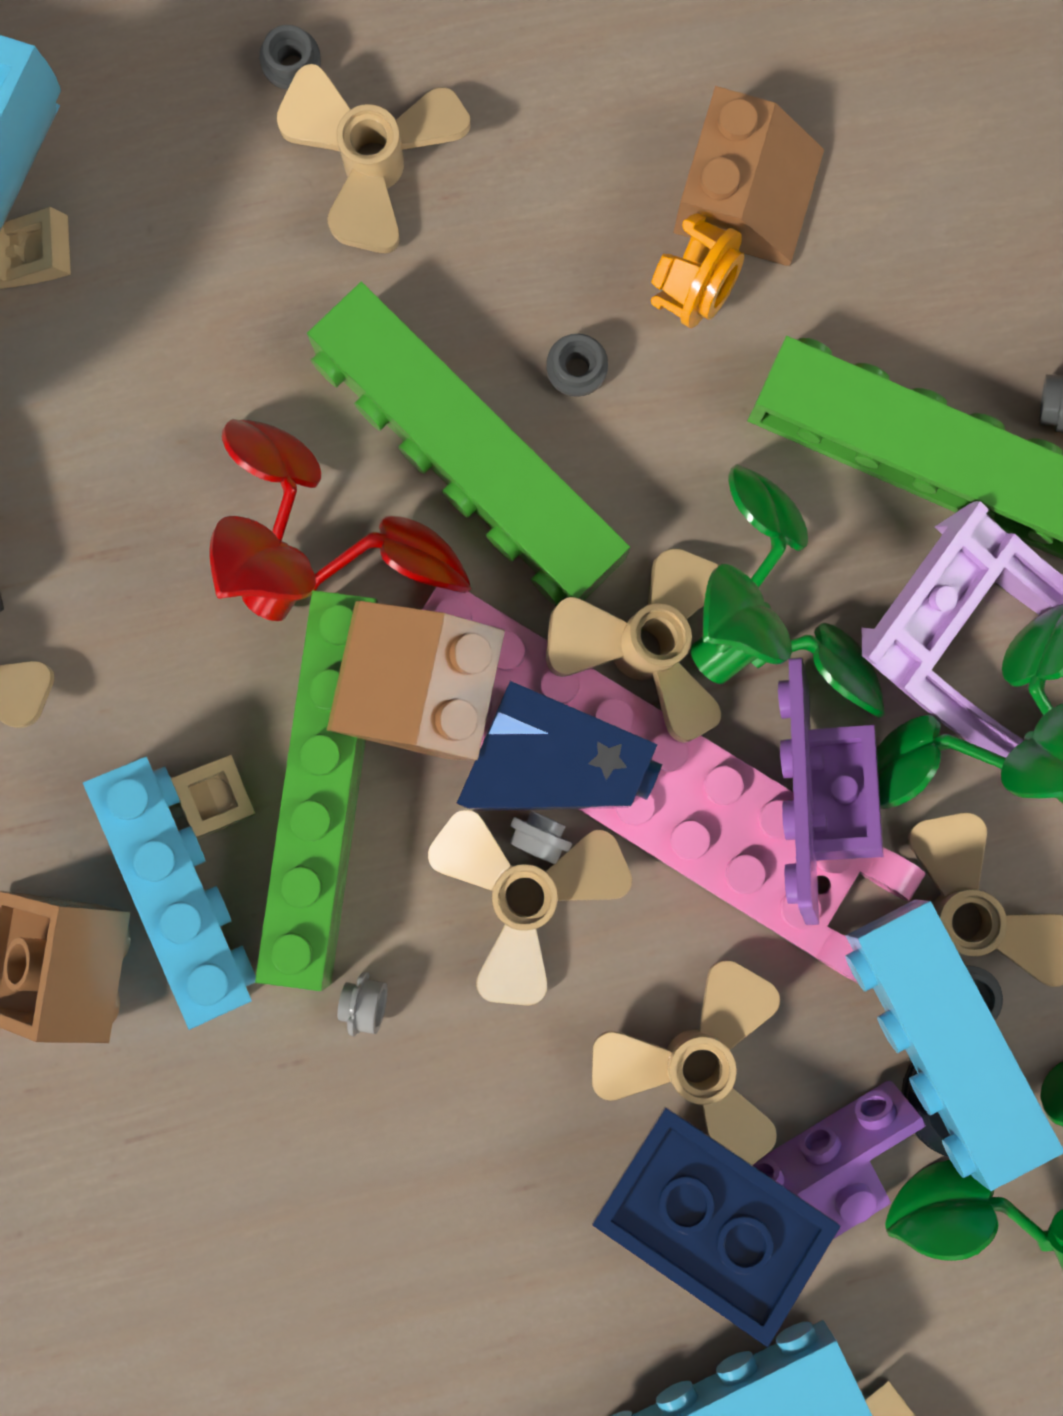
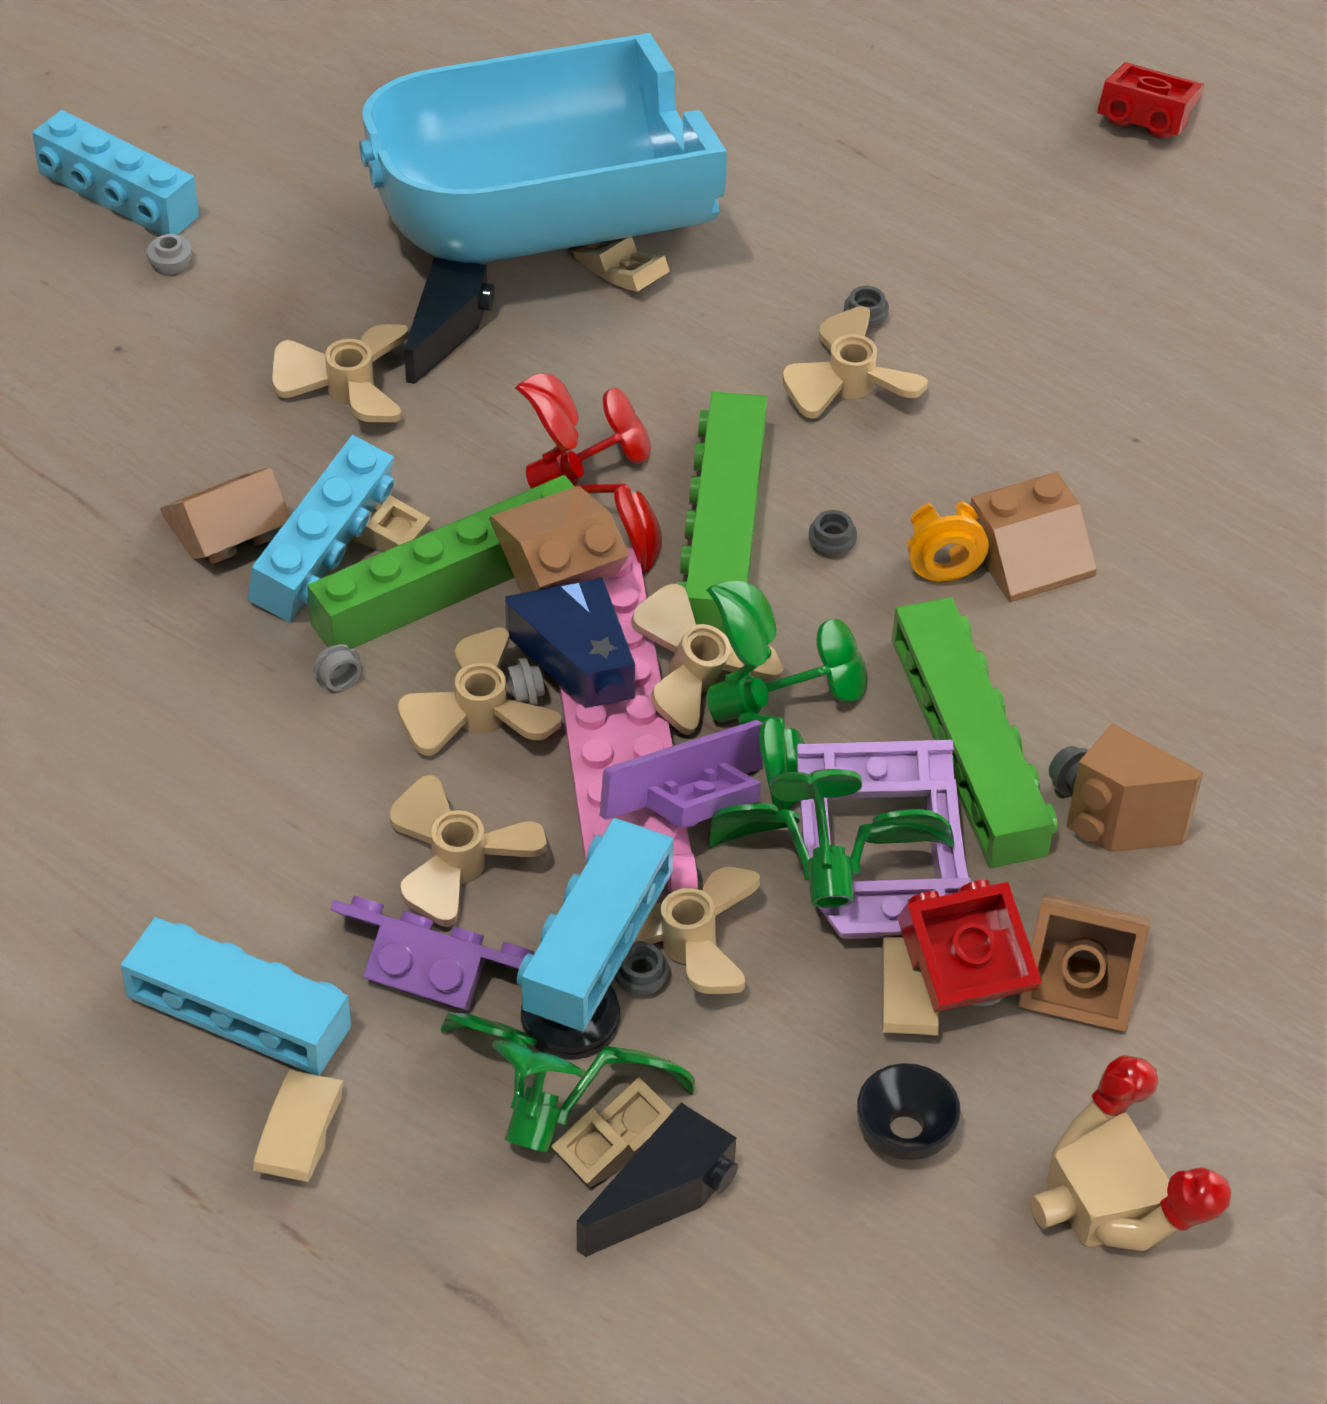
camera: 50 degrees right, 35 degrees down
(716, 1226) = (366, 883): dark blue plate -> none

